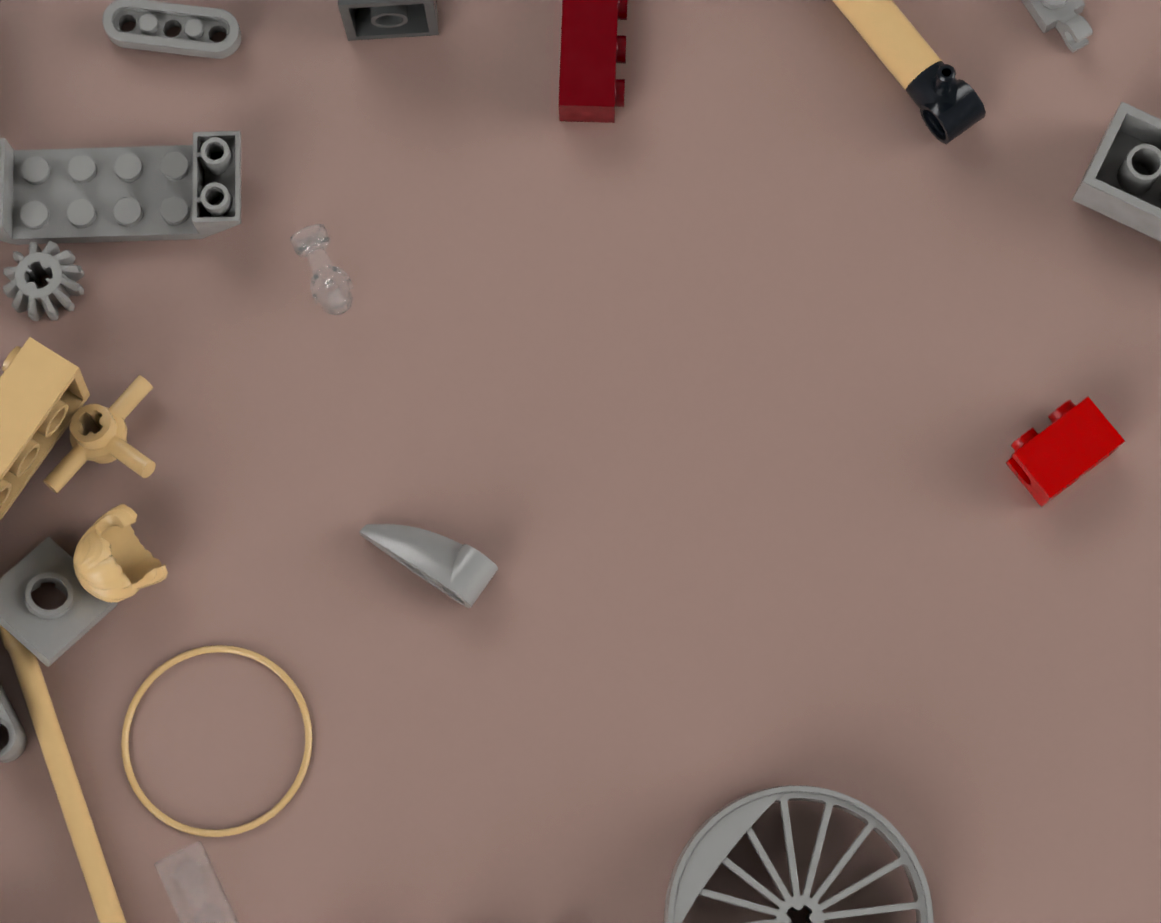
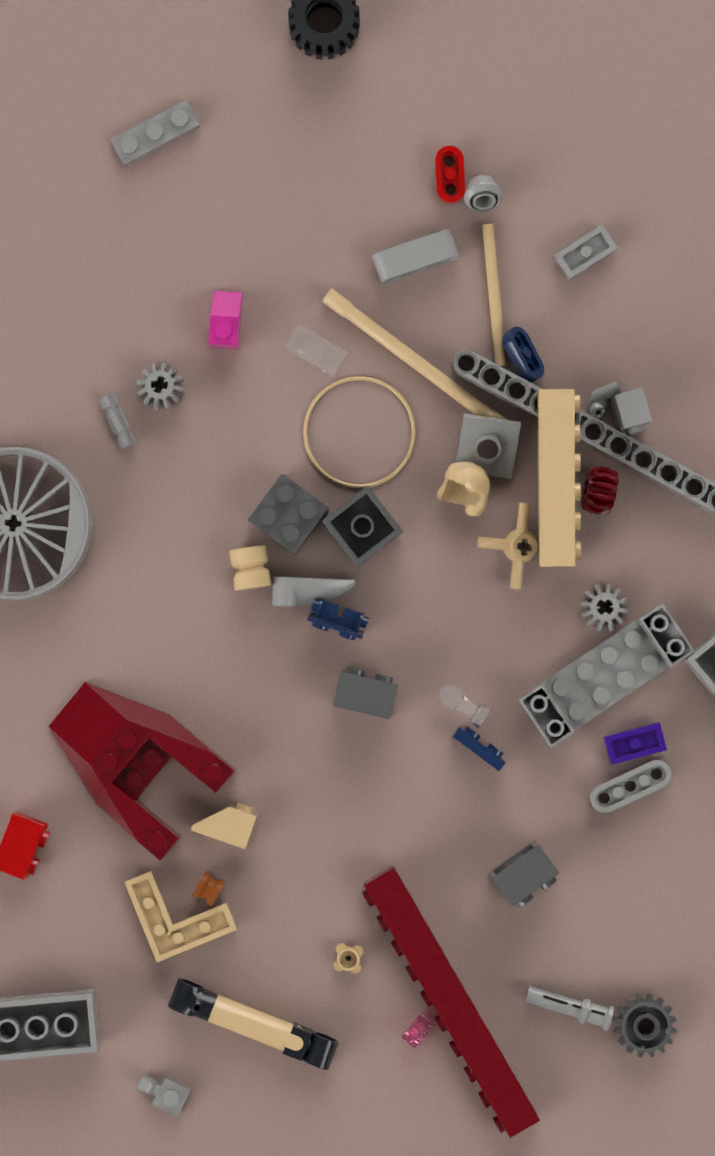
camera: 145 degrees right, 10 degrees up
(127, 79) = (635, 743): none -> dark purple plate
(297, 595) = (362, 526): none -> dark grey brick
(331, 180) = (470, 739): none -> dark blue plate
(391, 680) = (288, 514): none -> dark grey brick
(432, 501) = (327, 617): none -> dark blue hinge
(445, 357) = (365, 694): none -> dark grey brick
(495, 638) = (250, 568): none -> tan wheel
(695, 22) = (352, 965): none -> tan plate
(751, 303) = (229, 825): none -> tan slope
(832, 235) = (208, 888): none -> dark orange wheel
(839, 499) = (120, 751): none -> dark red wedge
(925, 200) = (174, 938): none -> tan plate

